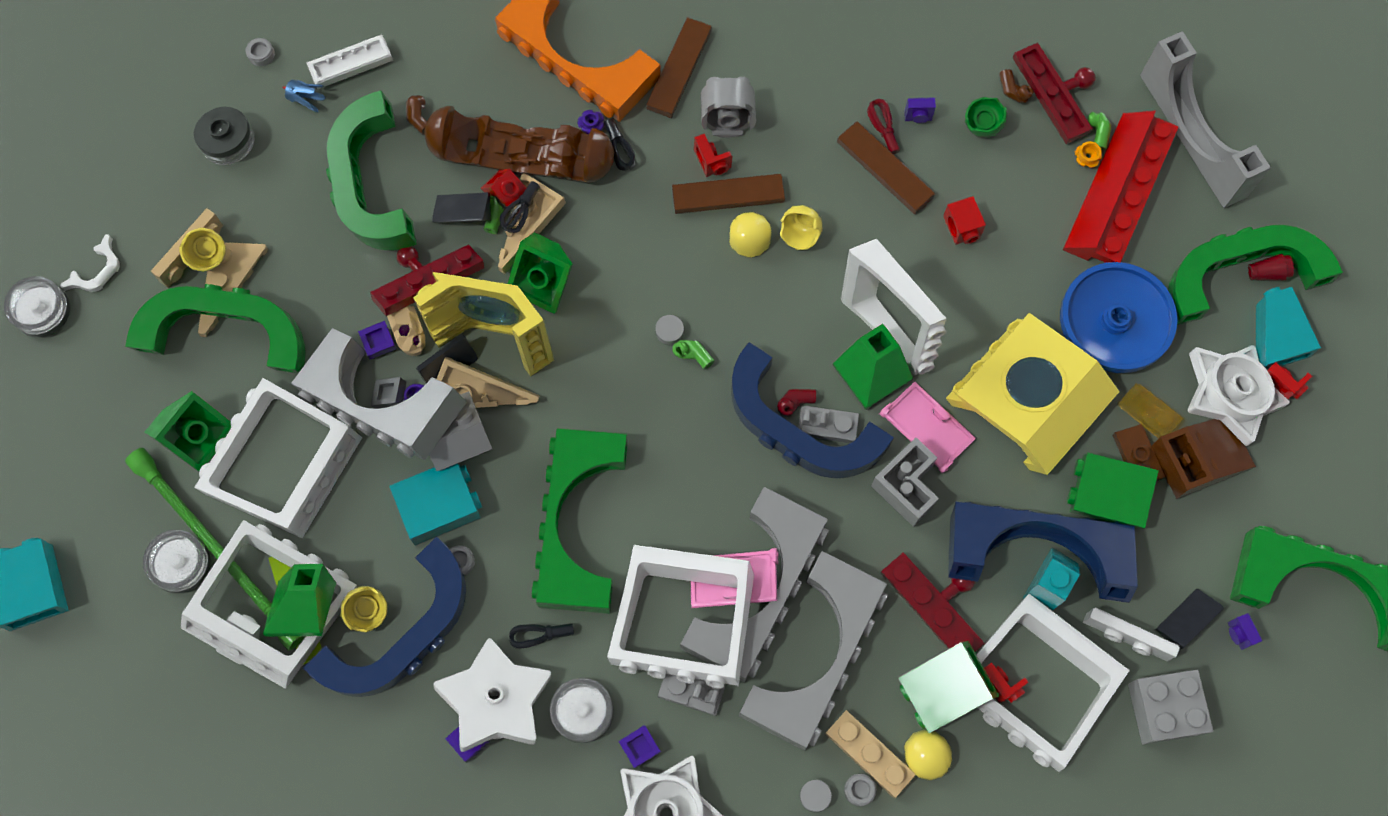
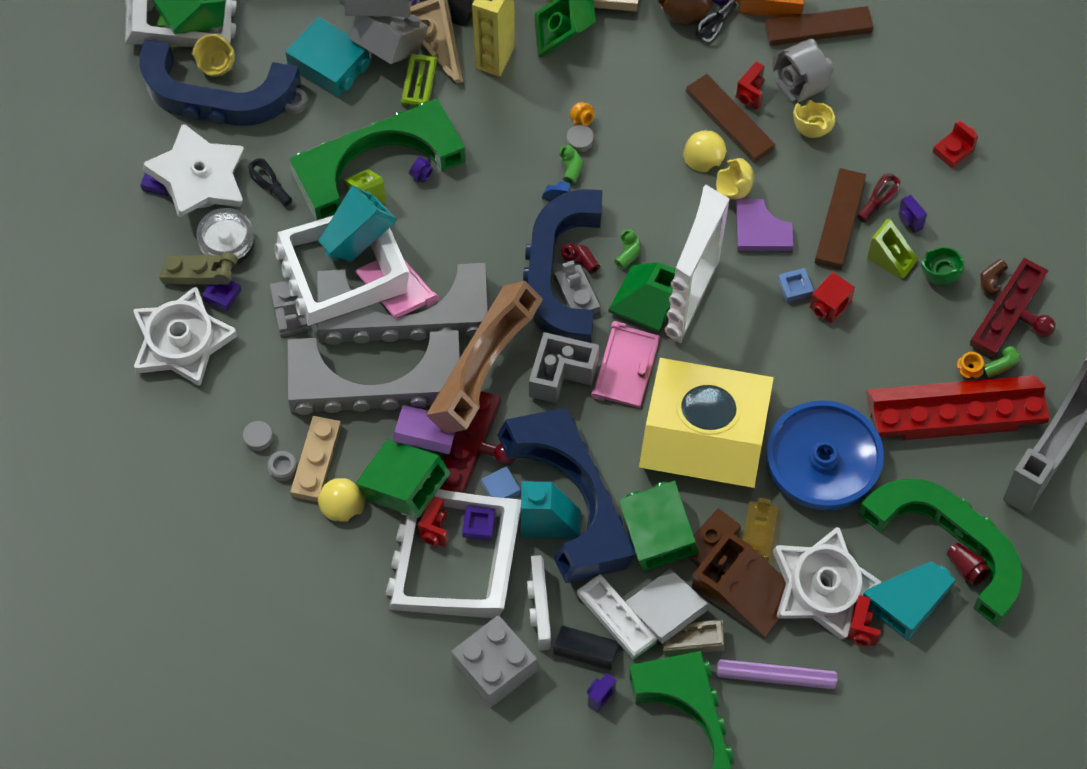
camera: 60 degrees right, 10 degrees down
(524, 425) = (415, 101): none -> lime tile
(603, 756) = (198, 269): none -> olive plate
(604, 548) = (369, 182): none -> lime slope
(617, 487) = (421, 169): none -> dark purple plate
(648, 312) = (582, 114): none -> light orange plate
(657, 579) = (355, 225): none -> teal slope
(723, 377) = (554, 191): none -> blue tile
(778, 127) = (813, 119): none -> light yellow hair
(814, 354) = (631, 249): none -> bright green arm
(849, 233) = (759, 229): none -> medium lavender tile
(870, 35) = (956, 145): none -> red bracket
(907, 637) = (419, 431): none -> medium lavender tile
(908, 593) = (461, 392): none -> medium nougat arch
(930, 242) = (795, 285): none -> medium blue tile
(945, 148) = (891, 250): none -> lime slope
(991, 603) = (501, 484): none -> medium blue tile
(1021, 643) = (478, 523): none -> dark purple plate
(1178, 577) = (616, 616): none -> white plate
(1188, 529) = (667, 605): none -> tile
(1229, 525) = (697, 636): none -> dark tan plate
(1293, 477) = (777, 674): none -> lavender axle

